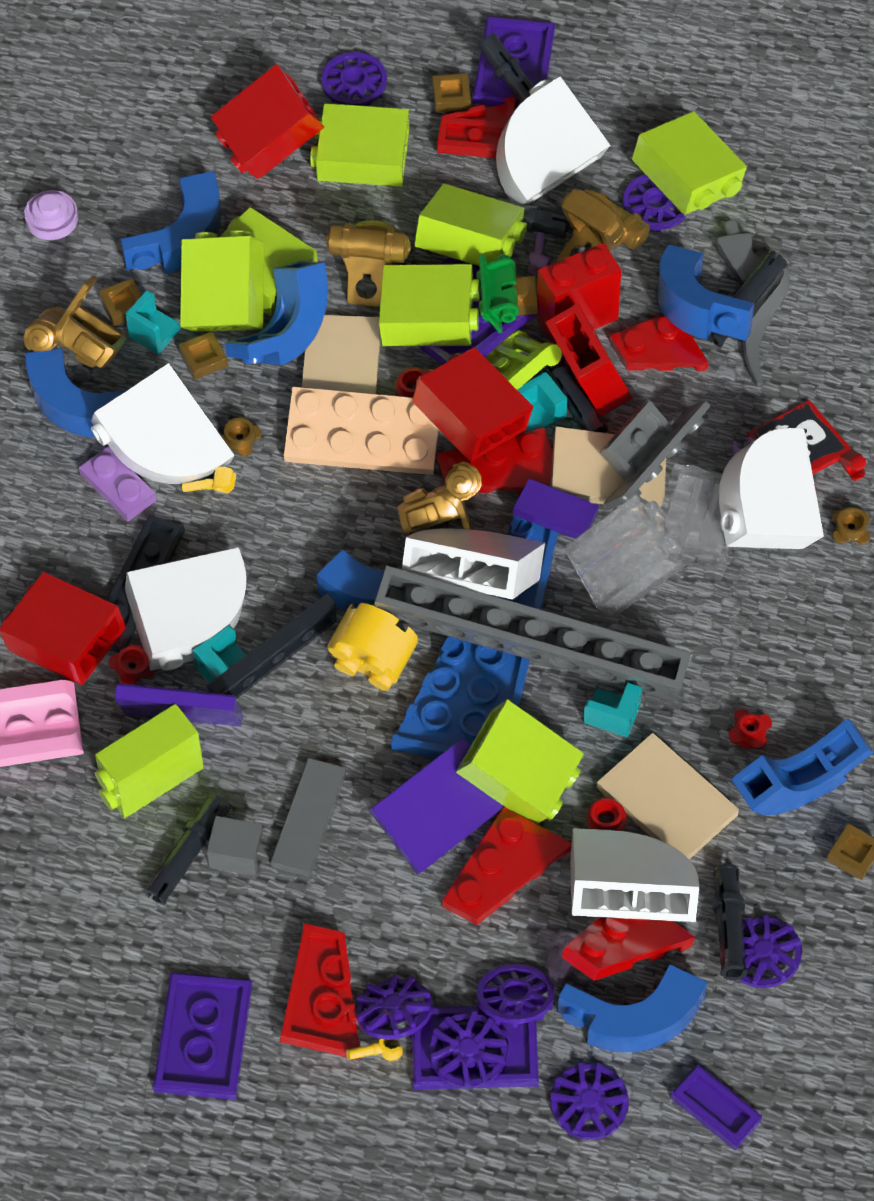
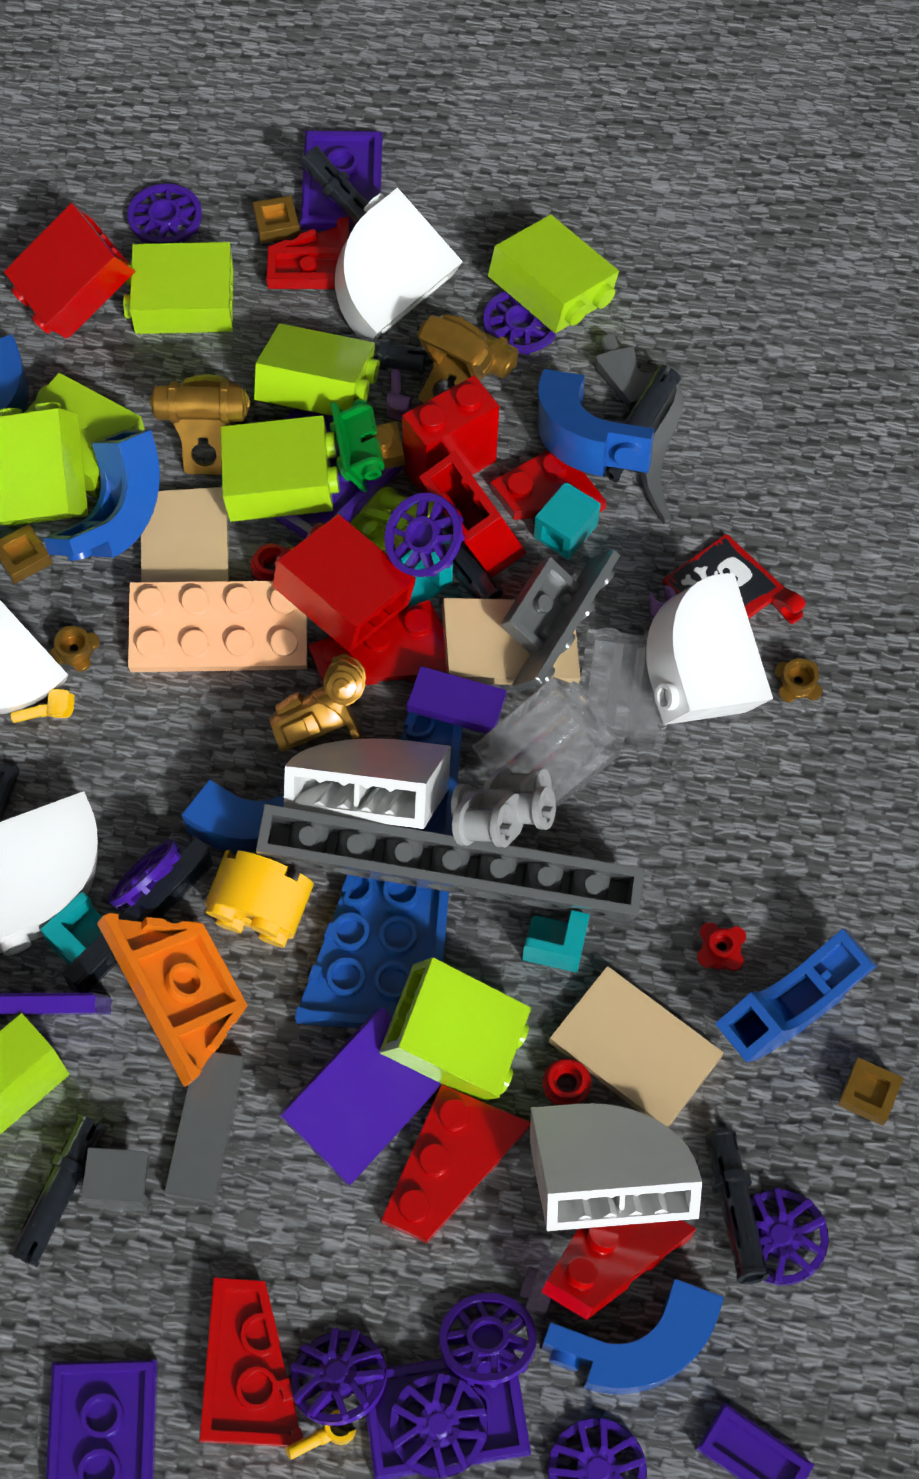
camera: 10 degrees left, 5 degrees up
(281, 618) = (144, 875): none -> dark purple wheel
(299, 705) = (178, 985): none -> orange wing
(544, 370) = (424, 535): none -> dark purple wheel
(579, 590) = (502, 807): none -> light grey axle
(671, 374) = (567, 520): none -> teal panel

